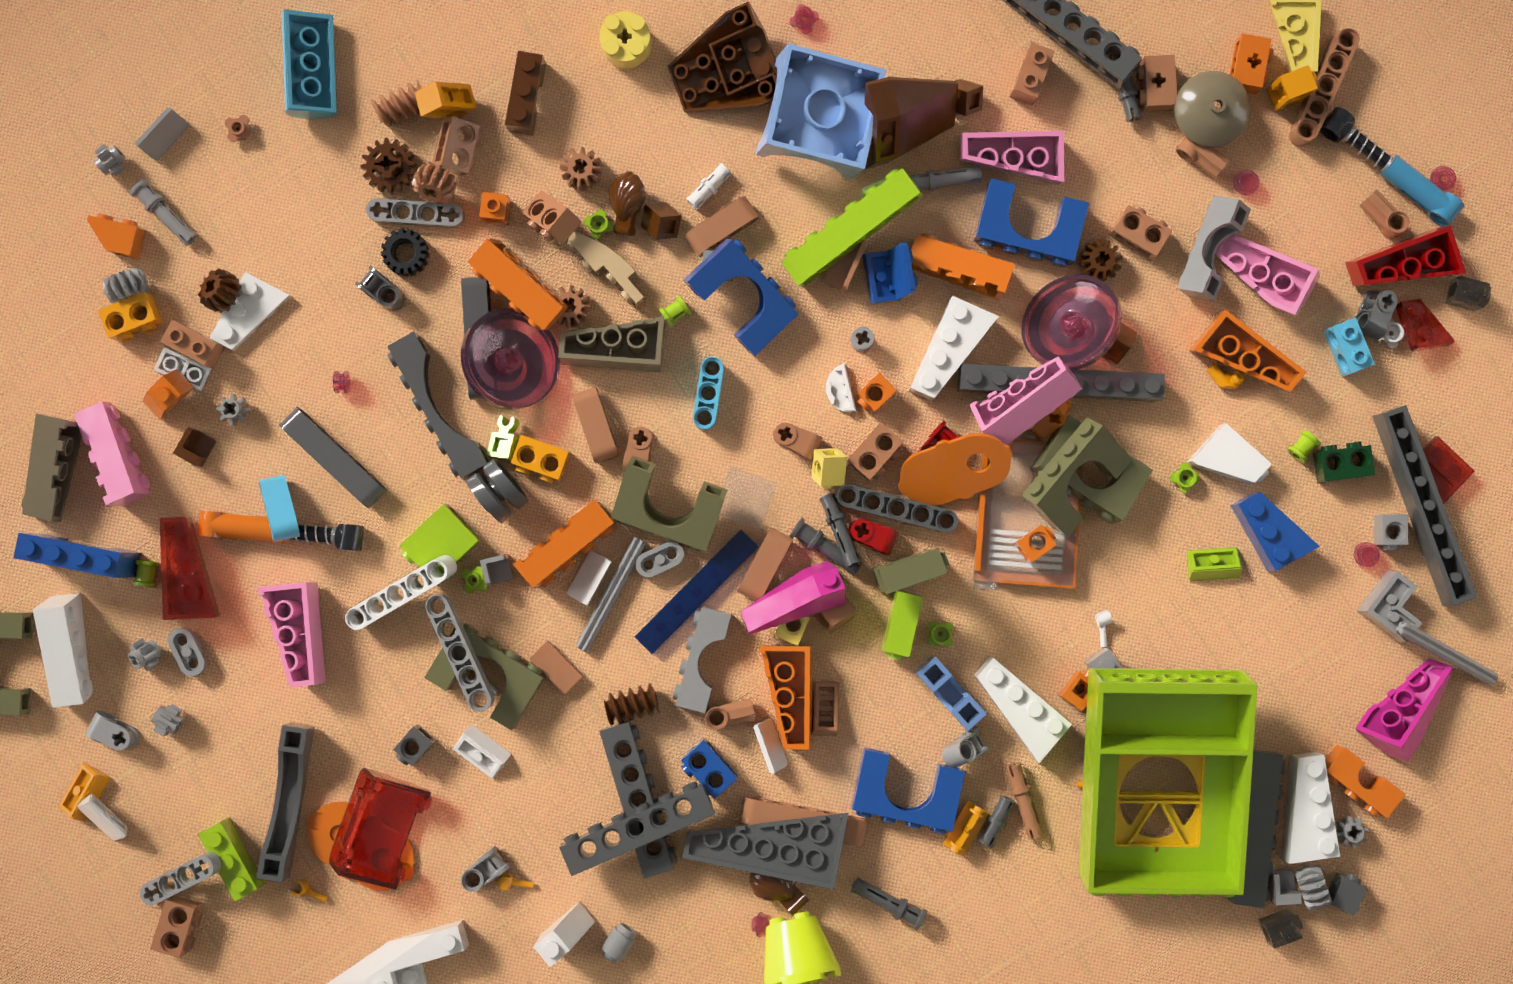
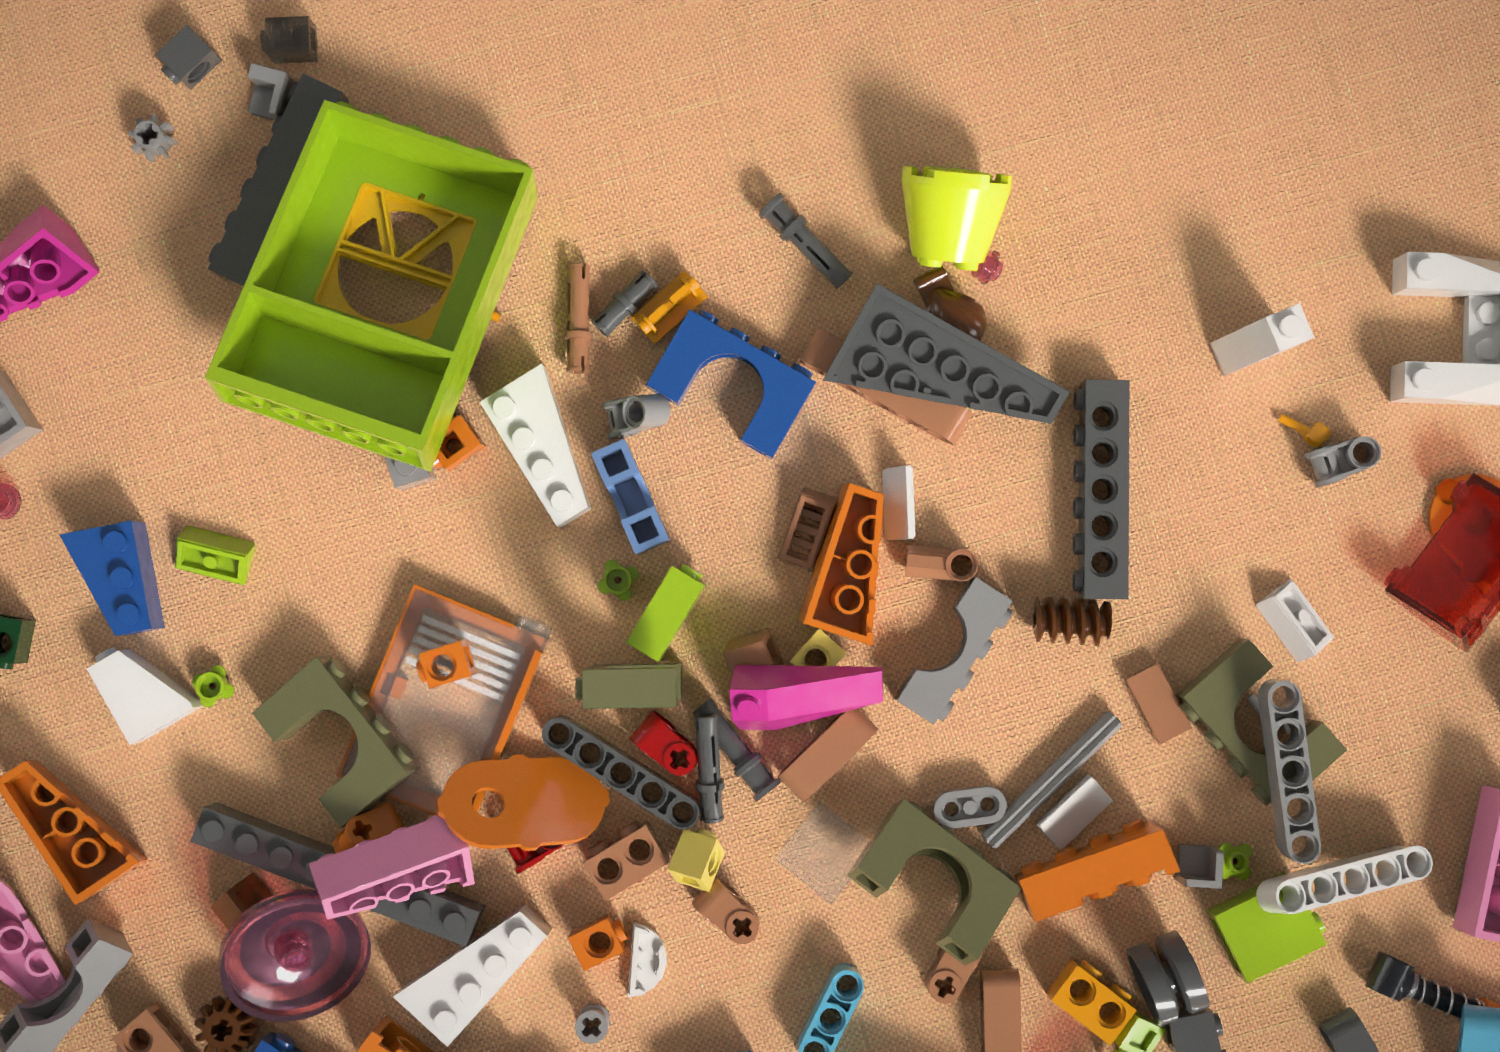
camera: 155 degrees left, 0 degrees up
(424, 741) = (1371, 659): dark grey brick -> none
(579, 860) = (1213, 435): dark grey brick -> none
(619, 943) = (1188, 303): light grey brick -> none
(696, 592) = (933, 745): clear blue tile -> none
(714, 764) = (984, 503): blue brick -> none
(1049, 489) = (403, 734): olive arch -> none
(1103, 618) = (391, 528): white hand -> none
(1225, 380) = (111, 802): light orange arm -> none
(1303, 446) = (35, 676): lime bush -> none
(1309, 812) = (198, 182): white wedge -> none
(1313, 887) = (227, 79): light grey gear -> none
(1379, 797) = (134, 223): orange arch -> none

